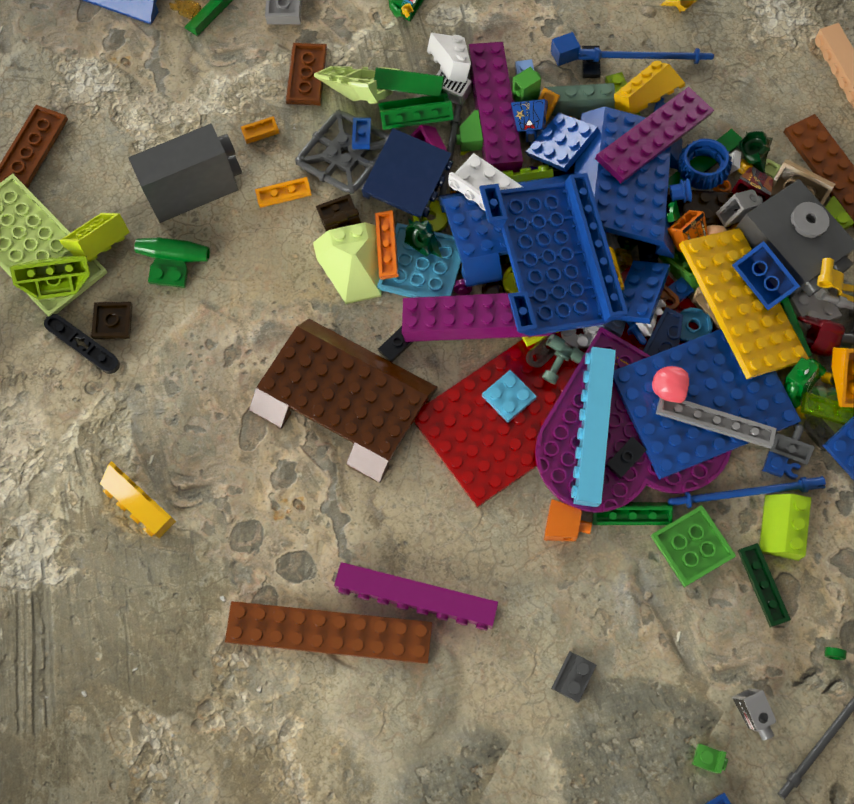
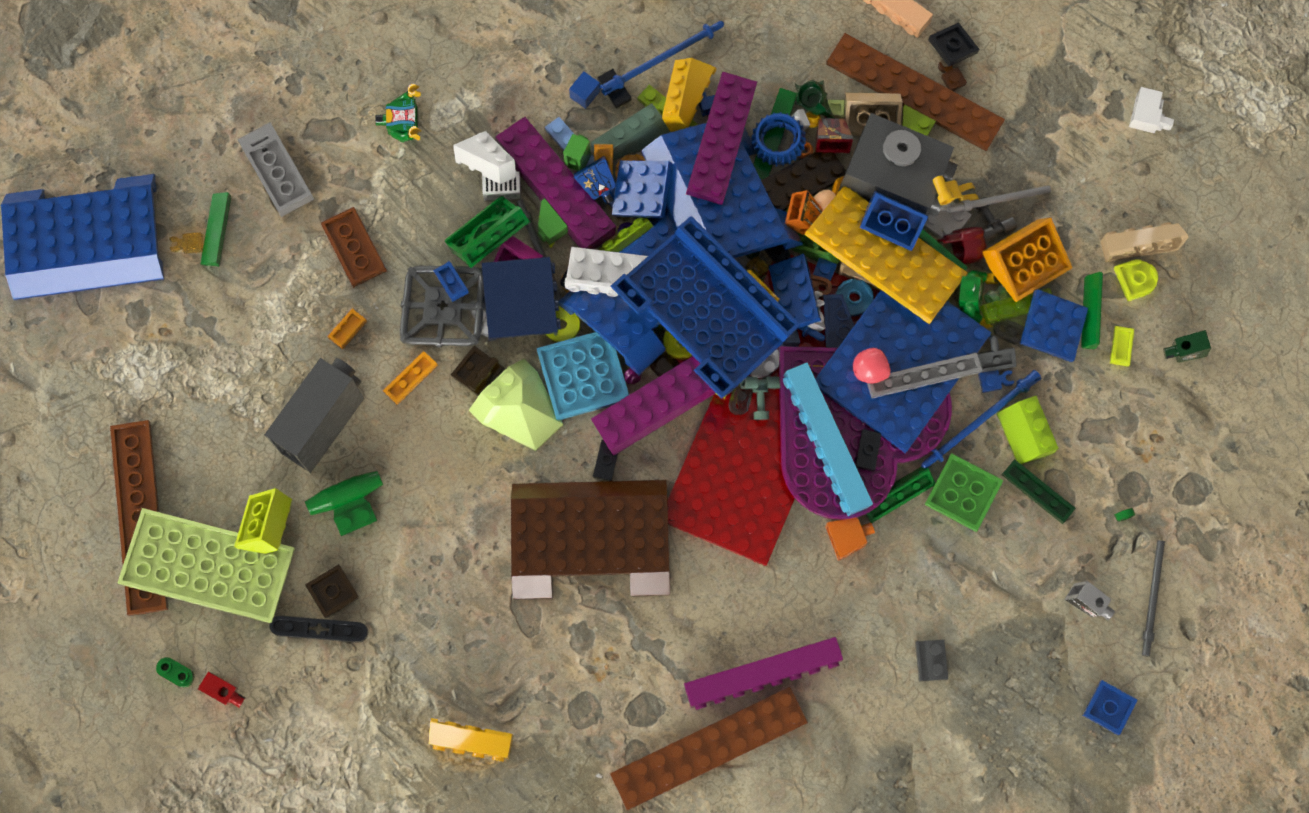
camera: 35 degrees left, 5 degrees up
(51, 276) = (253, 583): lime wedge -> none
(353, 83) = (414, 230): yellowish green wedge -> none
(386, 245) = (542, 375): orange plate -> none
(409, 82) = (462, 206): green slope -> none
(422, 238) = (571, 352): dark green hair -> none
(509, 396) = (735, 452): medium azure plate -> none
(674, 212) = (781, 203): green tile -> none
(681, 191) = (776, 180): blue piece -> none
(710, 759) = (1076, 660): bright green bracket -> none
(742, 201) = (838, 159): light grey torso -> none

